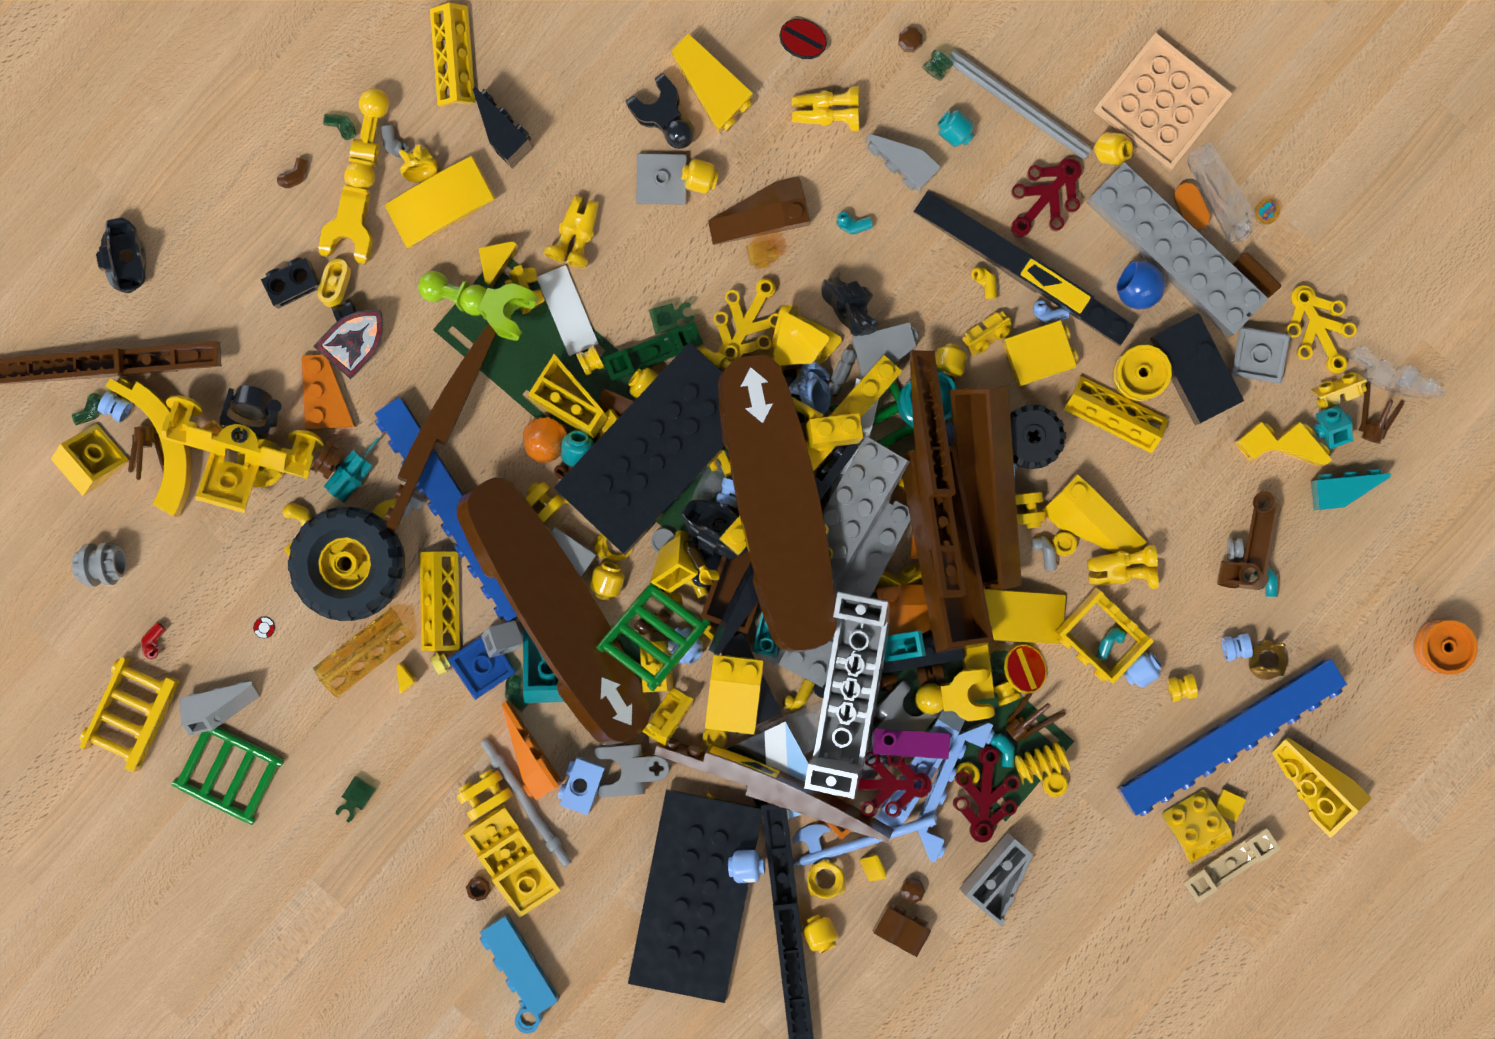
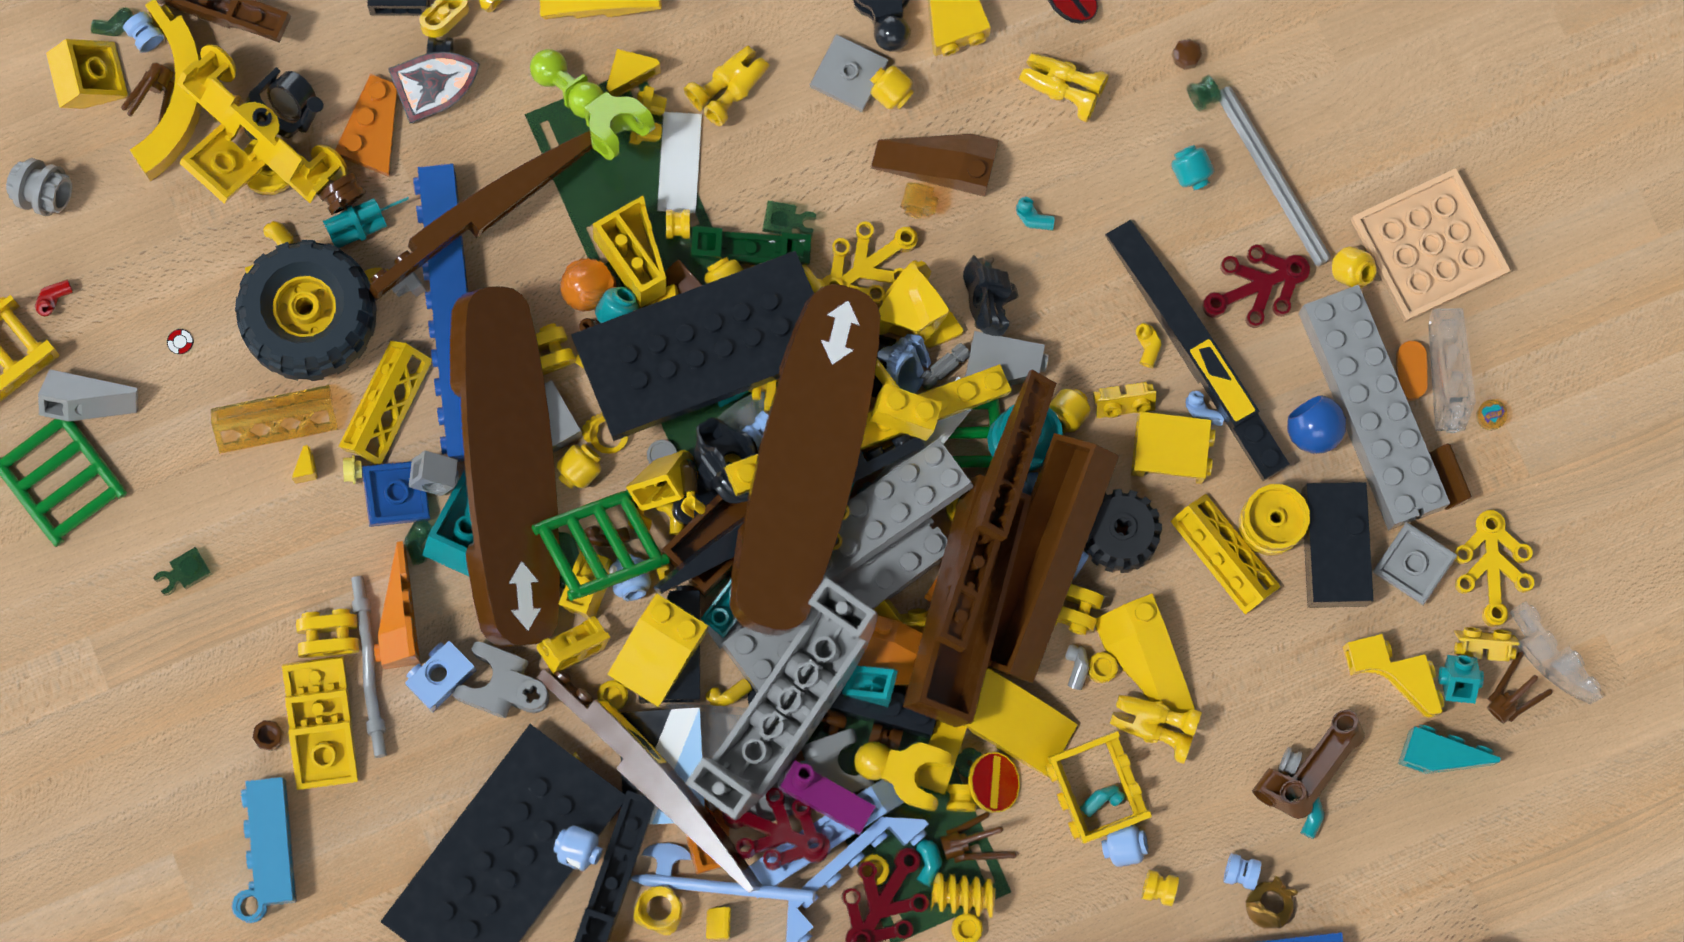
camera: 10 degrees right, 10 degrees down
(910, 162) = (1126, 180): light grey slope -> none

